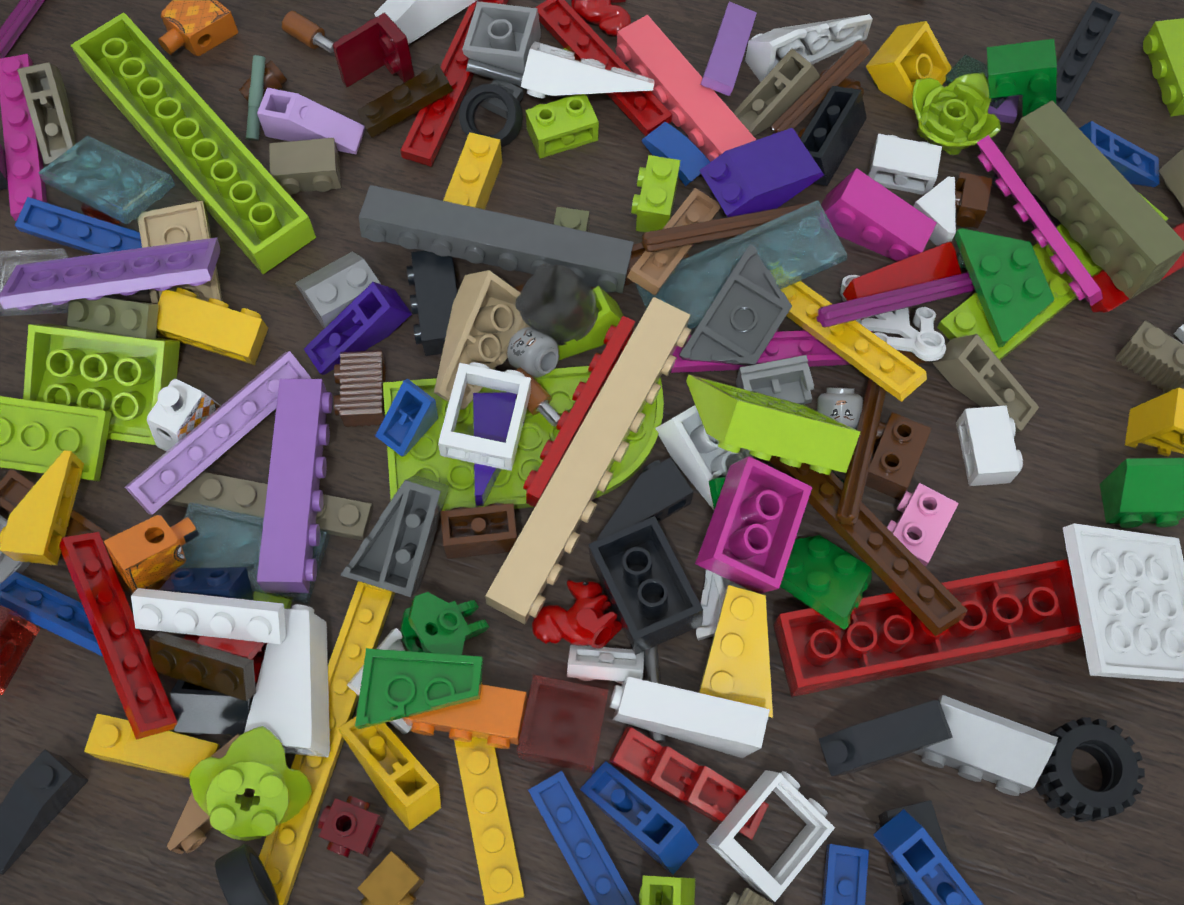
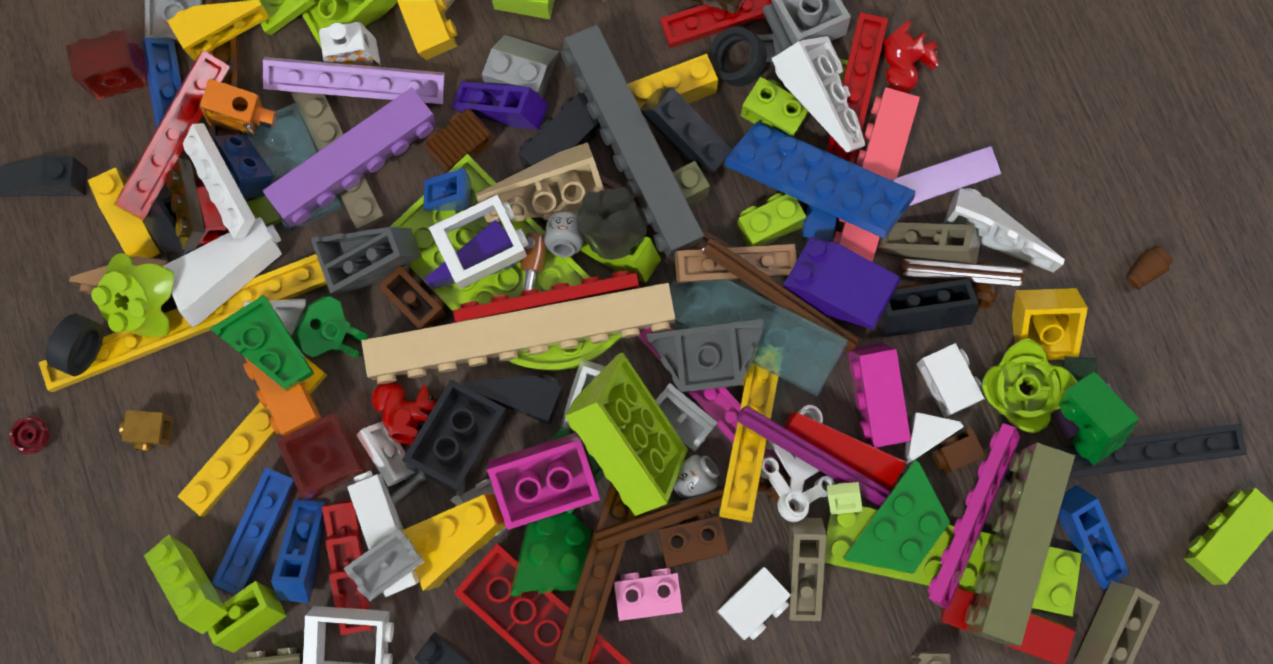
camera: 55 degrees right, 10 degrees up
(363, 830) = (162, 375): dark red brick -> none
(394, 771) = (213, 378): yellow slope -> none
(522, 191) = (685, 129): none -> black brick
(656, 127) = (820, 179): none -> blue plate
(732, 721) = (384, 564): none -> light grey hinge
(950, 304) = (844, 498): none -> yellowish green plate

